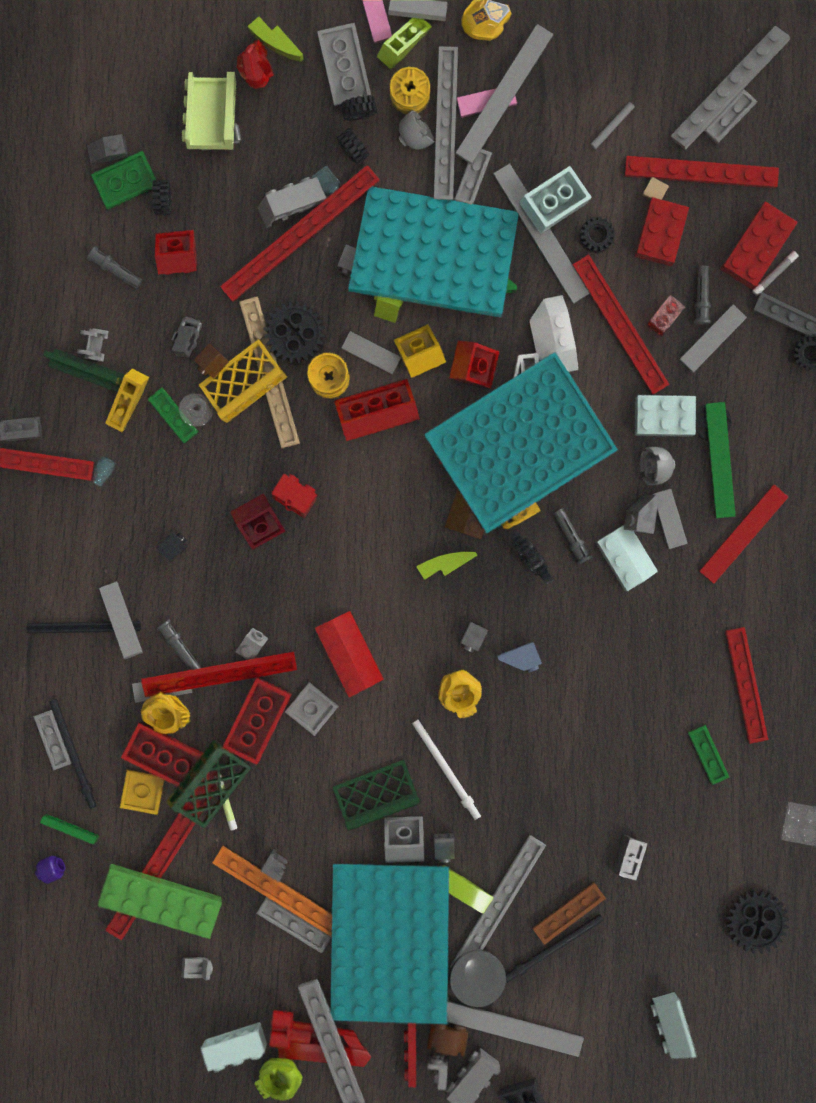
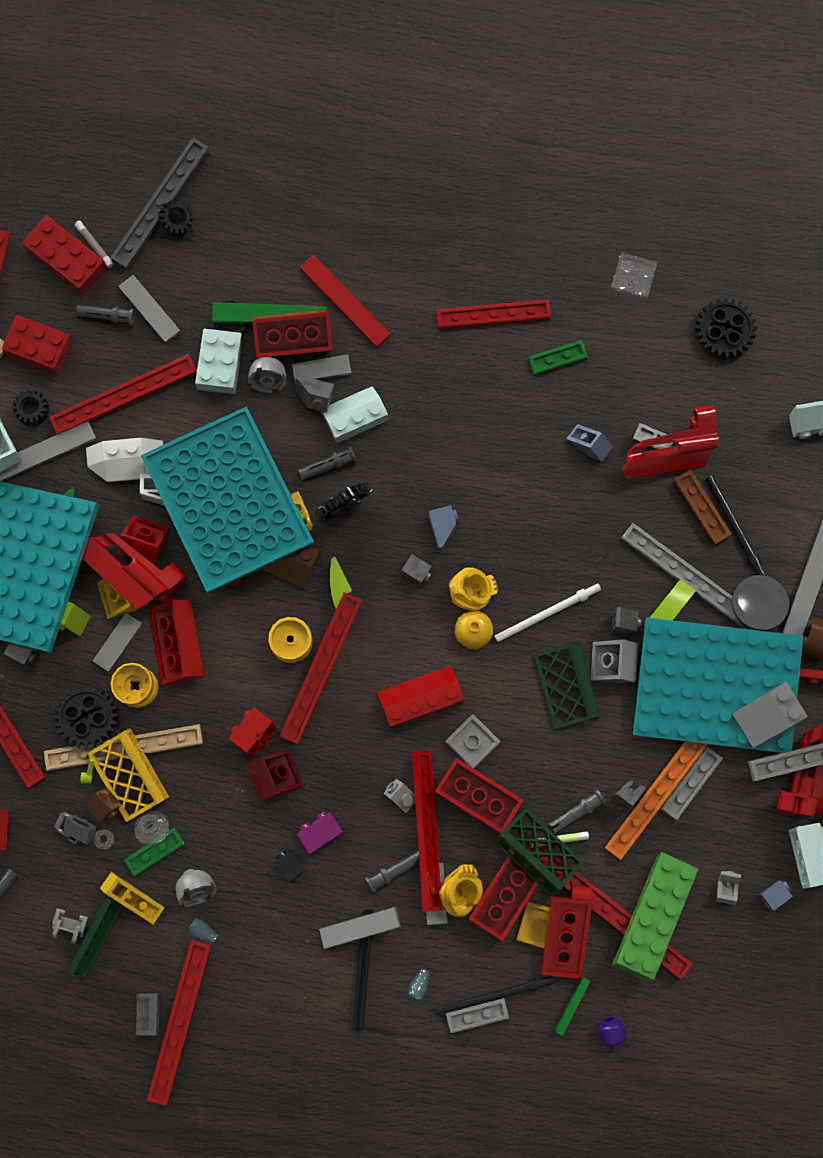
camera: 85 degrees left, 10 degrees down
(75, 682) = (419, 984): none -> clear light blue cone
(142, 458) = (194, 887): none -> light grey cylinder
(161, 829) = (580, 906): none -> red hinge
(183, 370) = (110, 839): none -> clear plate
(194, 1015) = (776, 895): none -> sand blue brick
(207, 571) = (319, 833): none -> magenta brick
(237, 341) = (86, 777): none -> lime hand
(260, 825) = (586, 806): none -> dark grey pin
(364, 997) = (769, 714): none -> light grey slope
(366, 554) = (320, 668): none -> red plate
(393, 510) = (290, 628): none -> yellow wheel
(421, 698) = (473, 630): none -> yellow cylinder
(429, 366) = (139, 580): none -> red panel
(623, 795) = (590, 442): none -> sand blue slope
(625, 896) = (692, 447): none -> red panel
(665, 315) = (121, 351): clear red plate -> none
(700, 485) = (292, 333): none -> red brick

